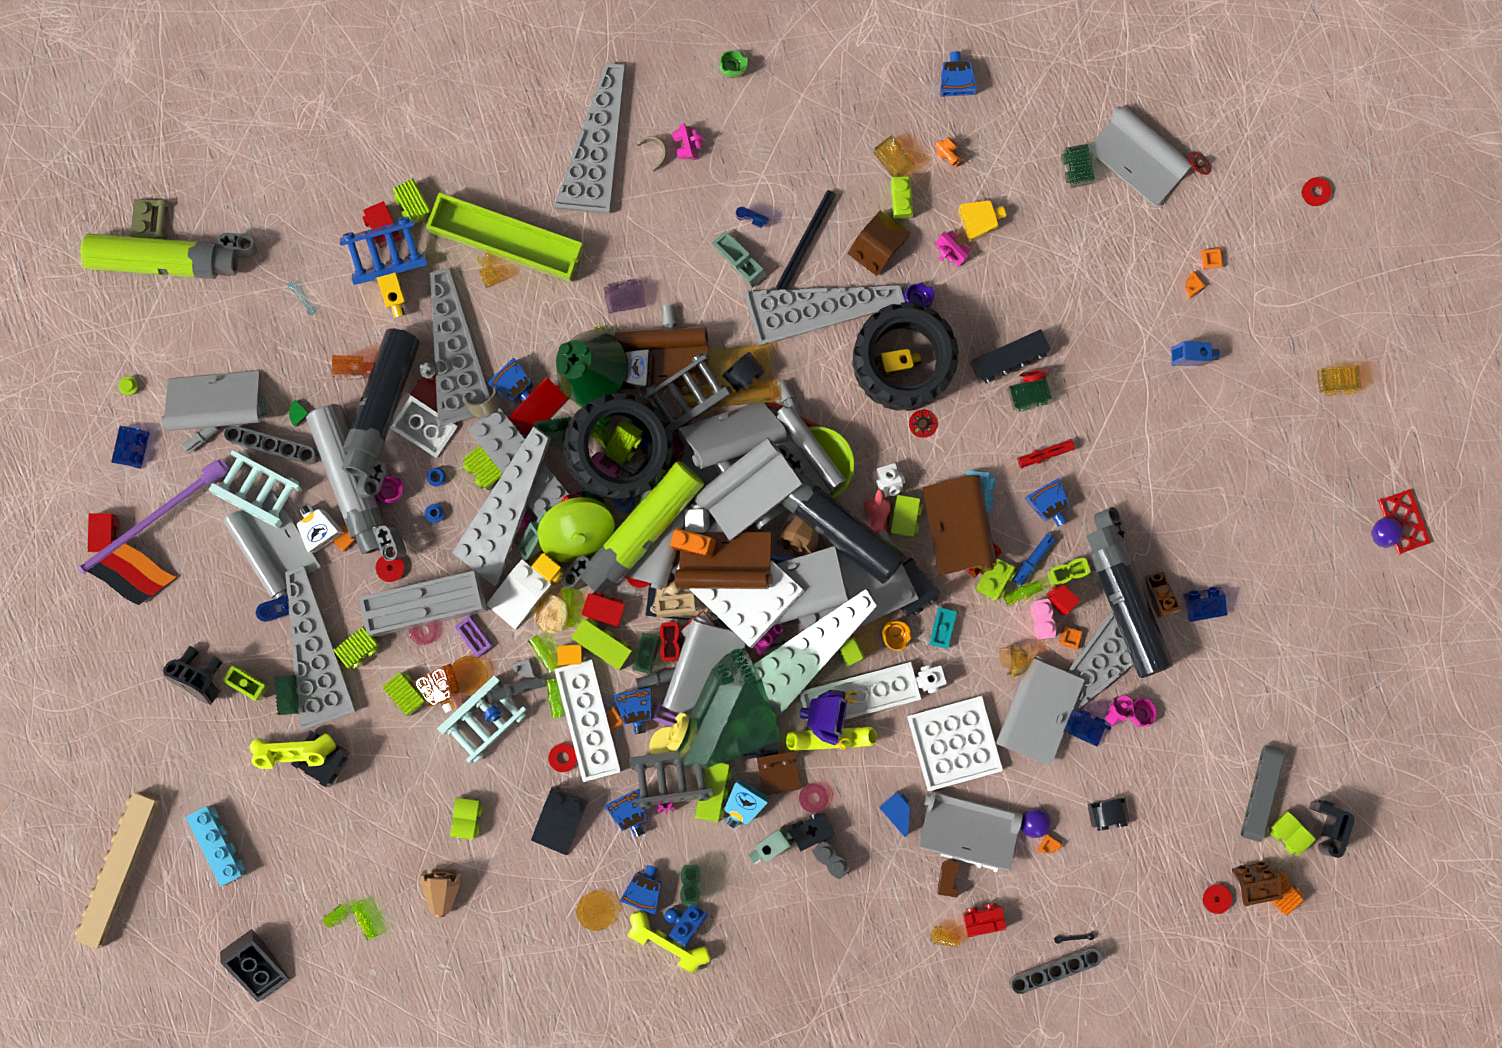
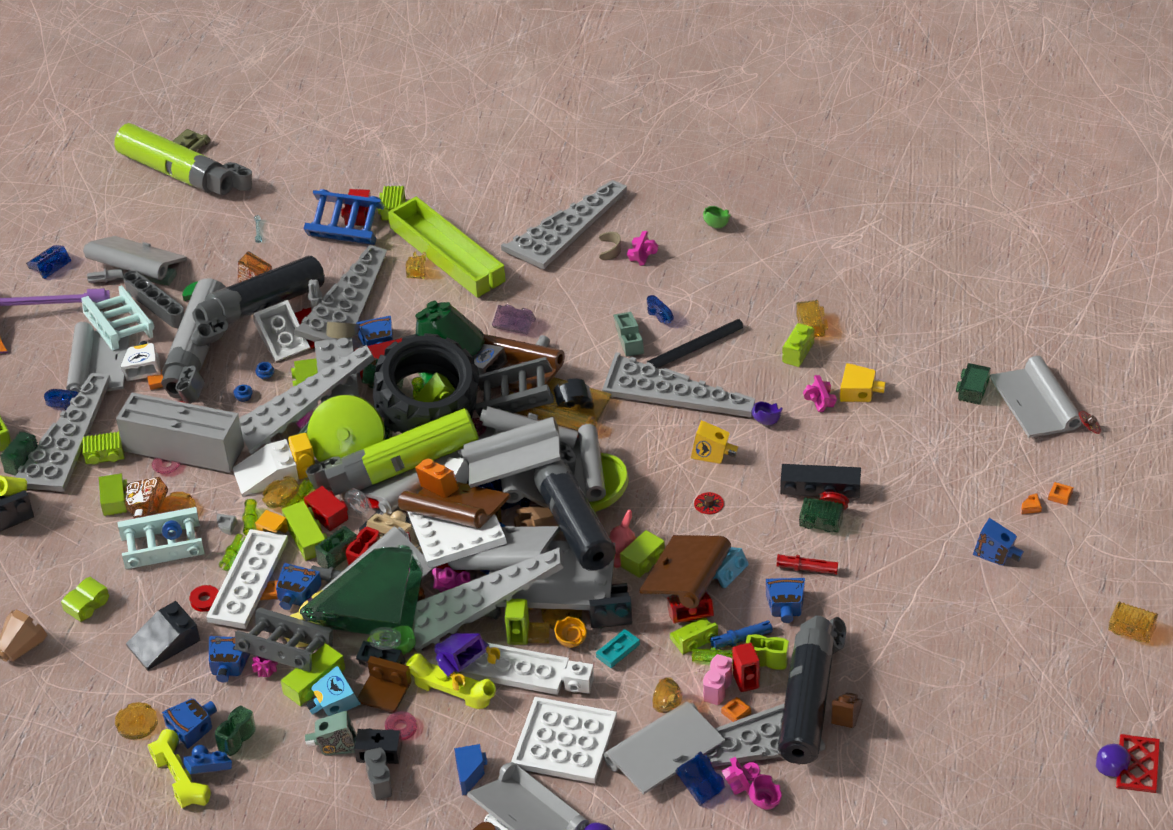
camera: 35 degrees right, 40 degrees down
(128, 385) = (82, 227): lime plate -> none
(390, 490) = (219, 361): dark pink hair -> none
(392, 284) = (330, 242): yellow torso -> none
(464, 623) = (204, 494): medium lavender tile -> none
(508, 691) = (198, 523): dark grey pin -> none
(786, 395) = (602, 432): light grey axle -> none
(878, 242) = (756, 360): reddish brown piece -> none
(890, 480) = (647, 519): white brick -> none
(913, 317) = (722, 464): black tyre -> none
(947, 149) = (861, 332): orange plate -> none
(957, 77) = (901, 291): blue torso -> none
(1205, 604) = (887, 738): clear blue bracket -> none

